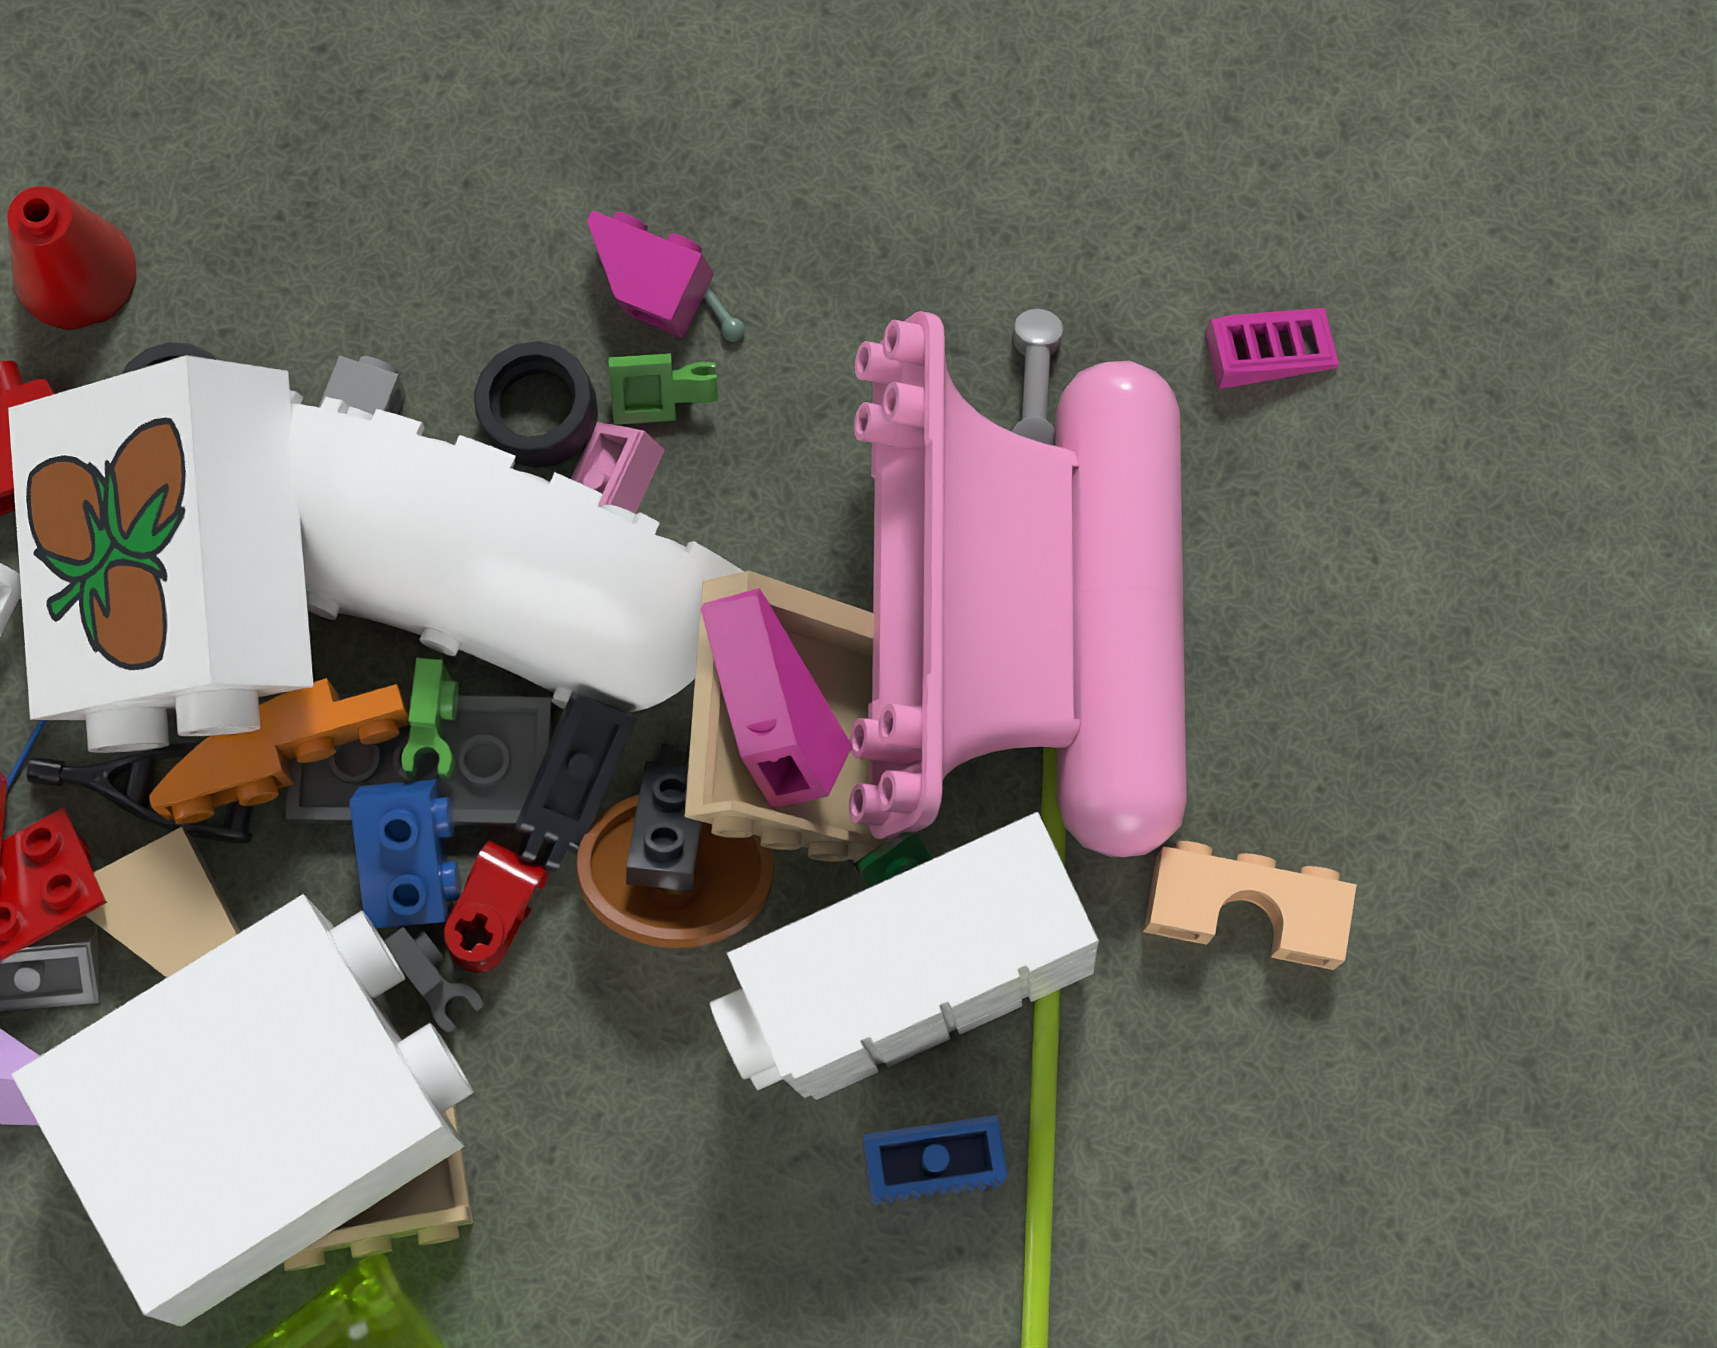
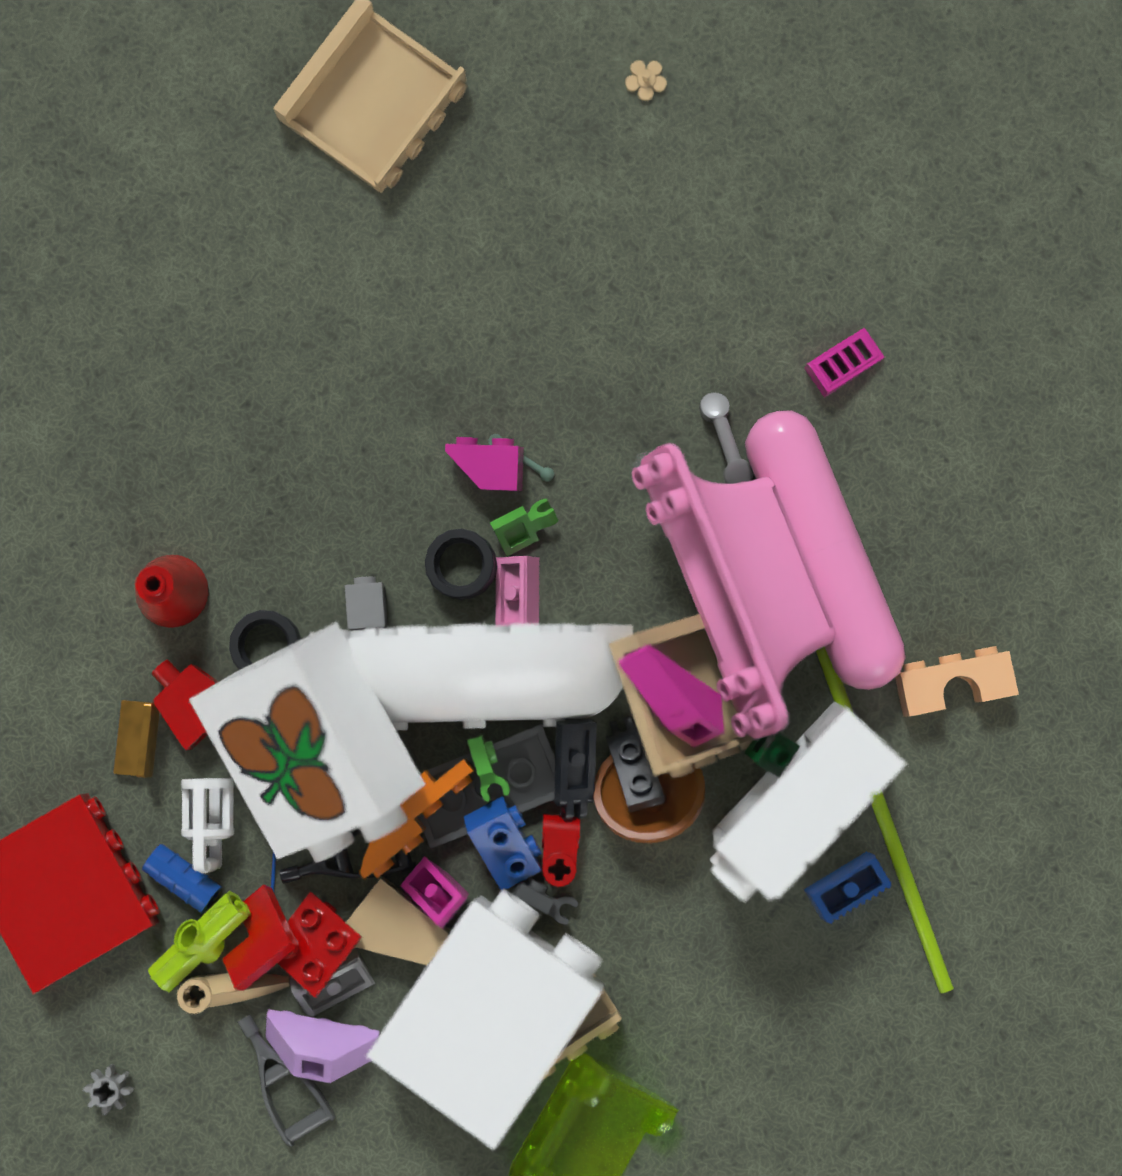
camera: 20 degrees left, 10 degrees up
(254, 877) = (434, 891): none -> dark pink slope

